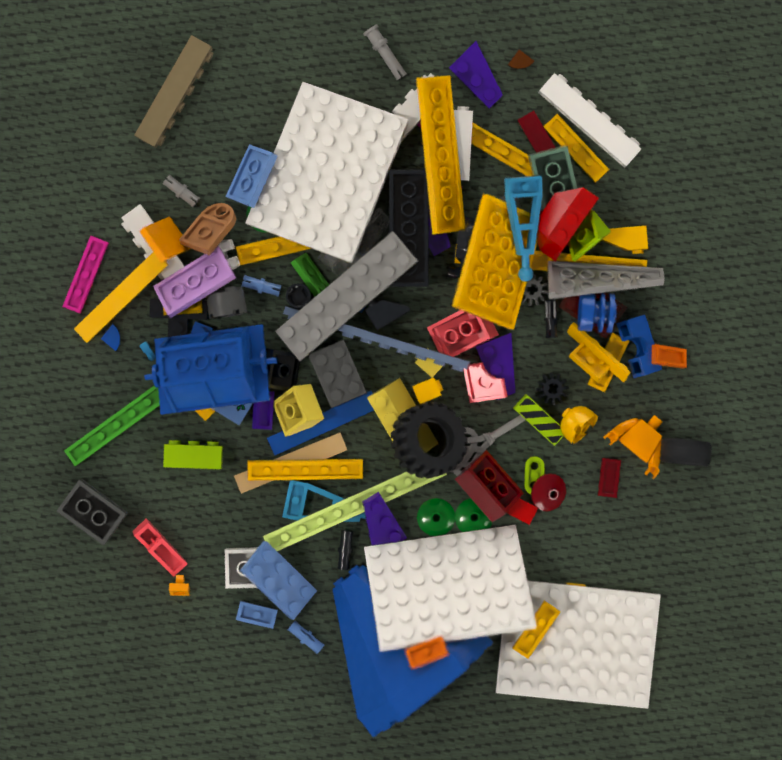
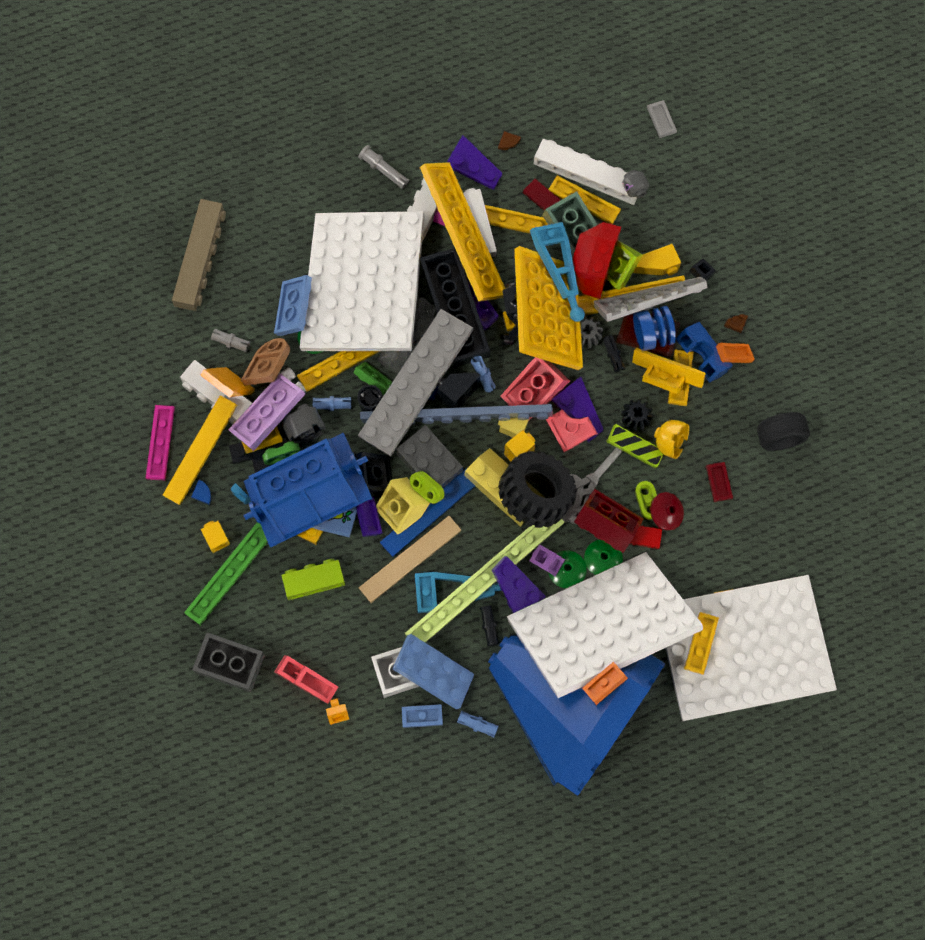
camera: 15 degrees left, 15 degrees down
(112, 385) = (215, 536): none -> yellow brick
(205, 325) = (275, 455): none -> bright green plate
(305, 469) = (426, 559): yellow tile -> none
(326, 403) = (426, 487): none -> lime plate
(415, 304) = (485, 373): none -> medium blue pin
(418, 511) = (547, 560): none -> medium lavender brick
(630, 153) = (635, 184): none -> dark grey head
(641, 440) = (736, 436): light orange torso -> none
(667, 260) = (702, 269): none -> black brick
(683, 323) = (736, 322): none -> reddish brown tile
(684, 83) = (661, 119): none -> light grey tile

